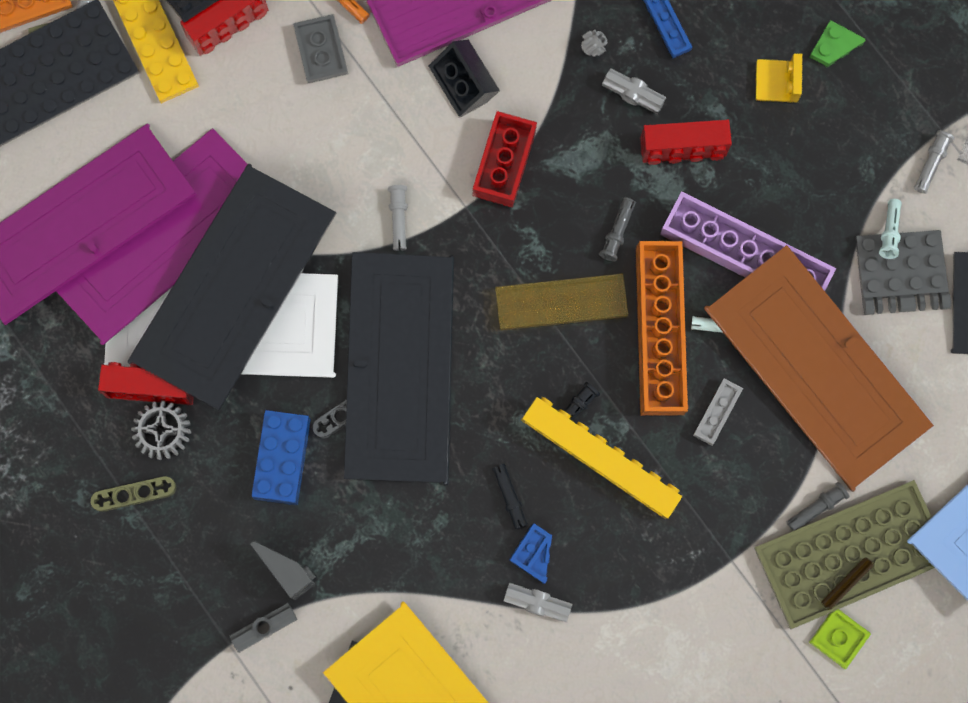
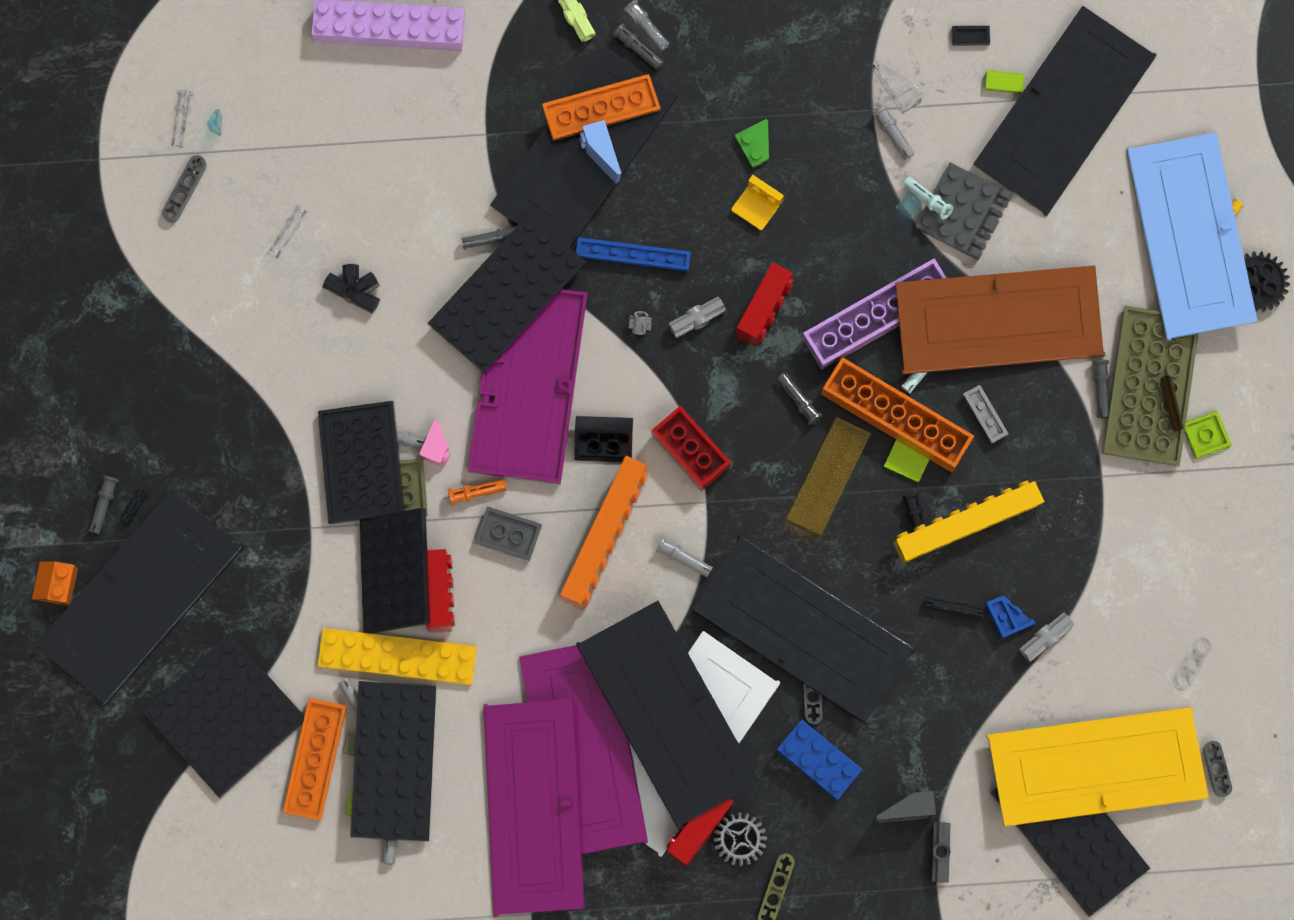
camera: 55 degrees left, 0 degrees up
(373, 129) = (604, 532): none -> orange brick
(623, 366) = (906, 462): none -> lime tile
(872, 219) = (909, 205): none -> clear light blue slope

